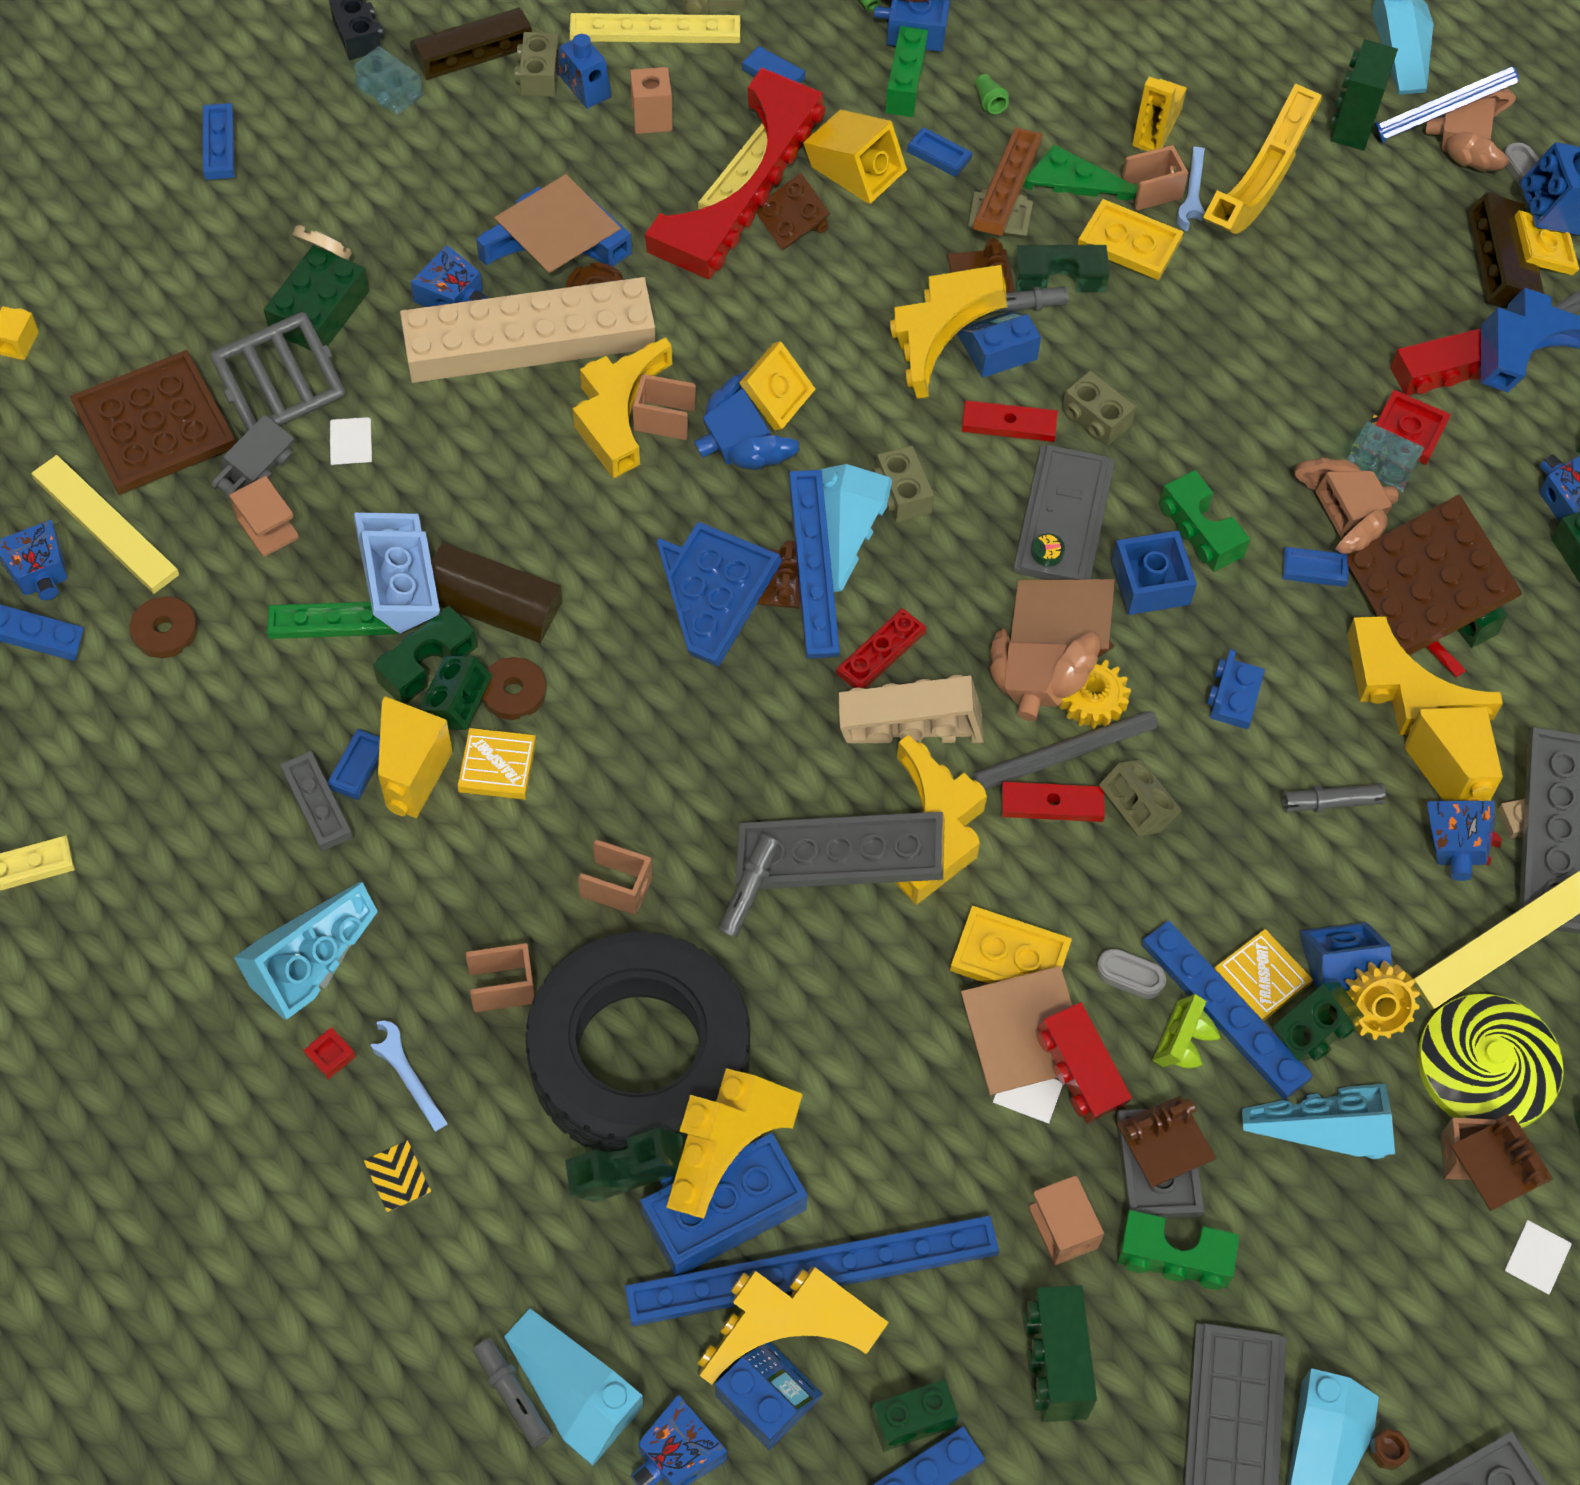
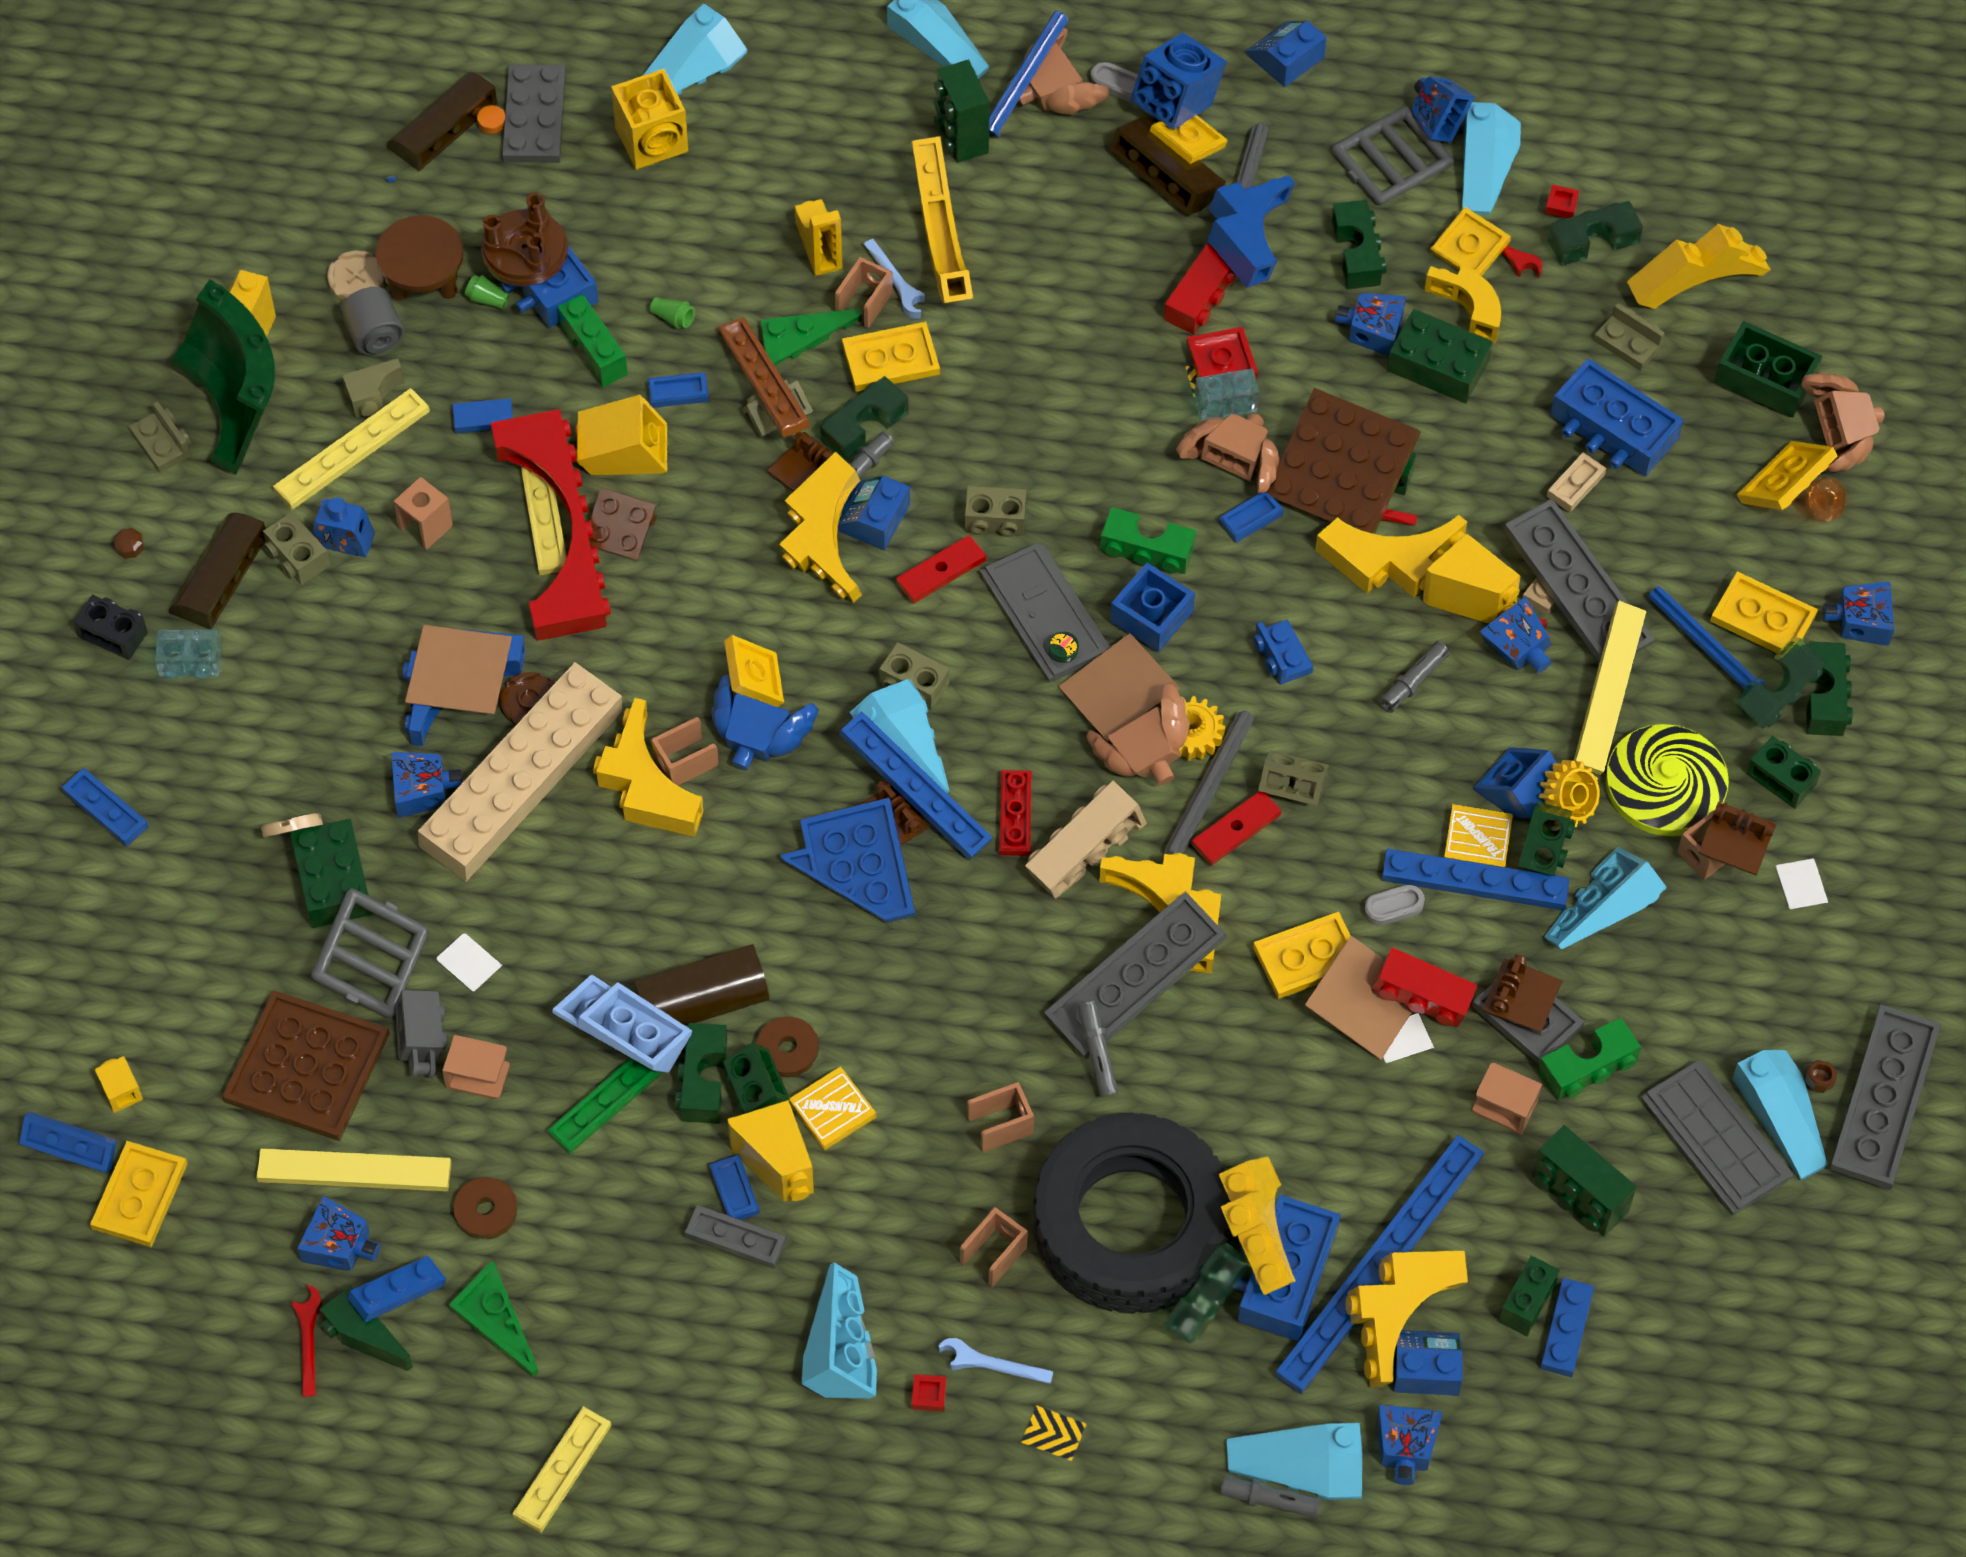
camera: 40 degrees left, 0 degrees up
(78, 707) = (489, 1312): none -> green wing
(1185, 1022) = (1461, 911): lime tile -> none

